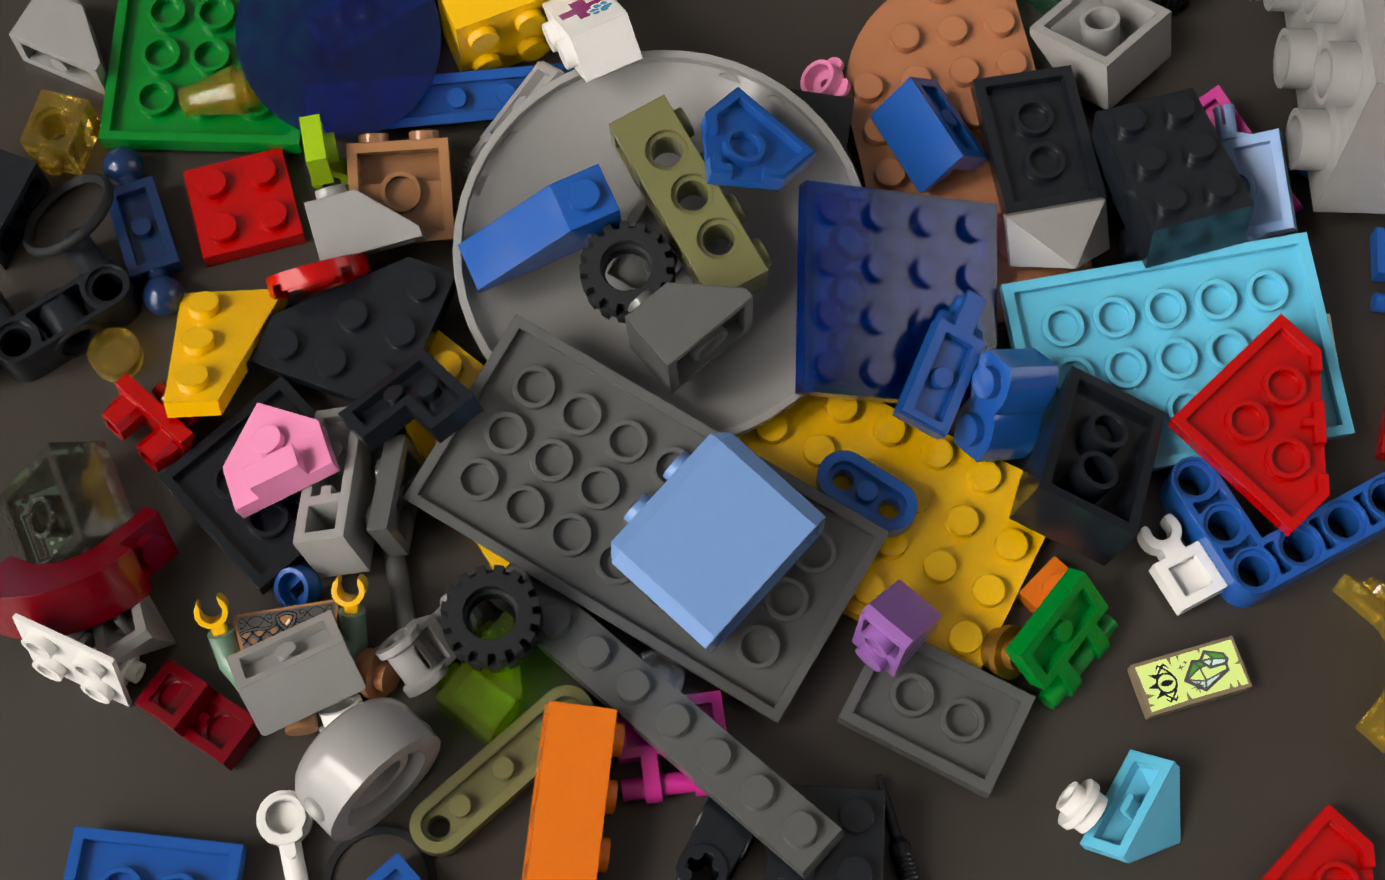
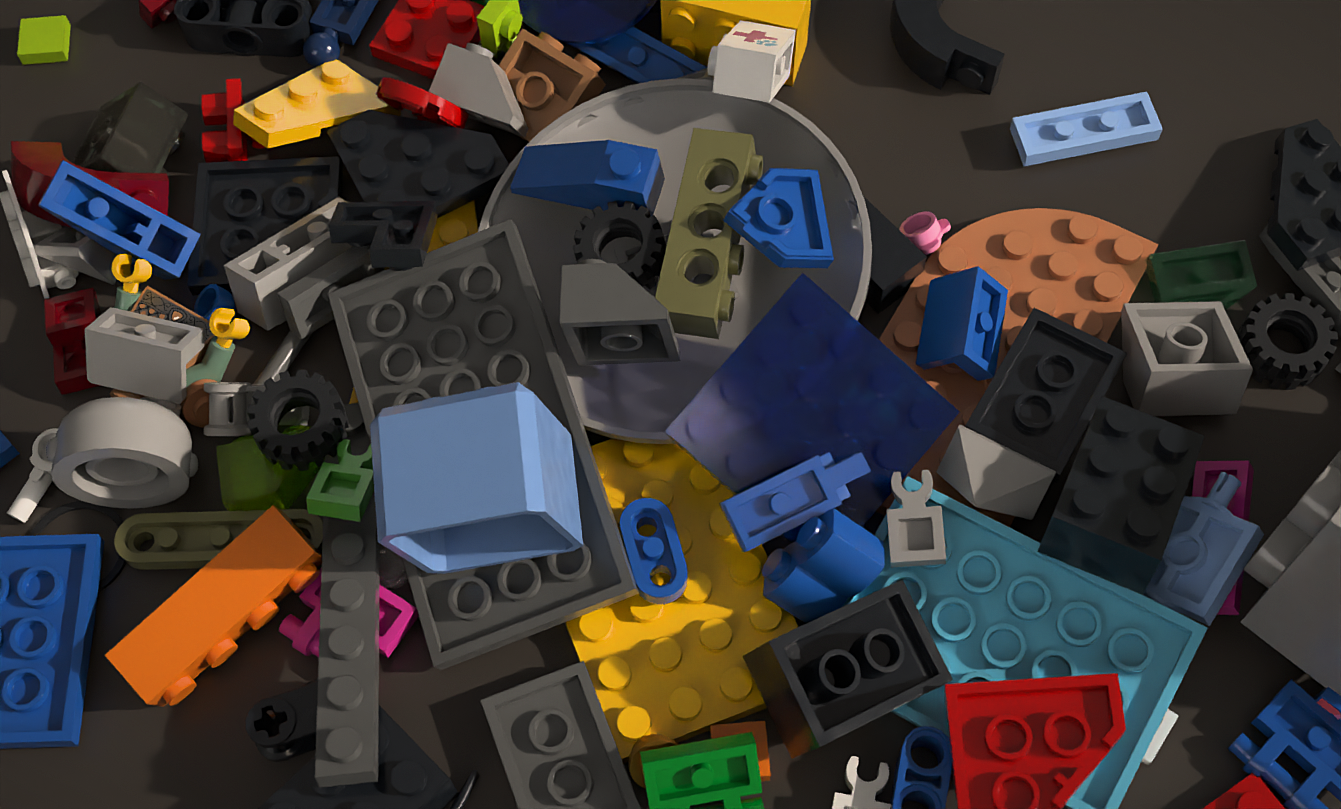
camera: 45 degrees right, 5 degrees down
(115, 354) = (257, 68): clear yellow tile -> none
(168, 577) = (118, 221): none -> blue slope
(276, 458) = (273, 204): bright pink plate -> none
(585, 637) = (344, 487): none -> bright green plate
(894, 628) = (570, 661): medium lavender slope -> none
(1049, 321) = (914, 529): none -> light grey plate

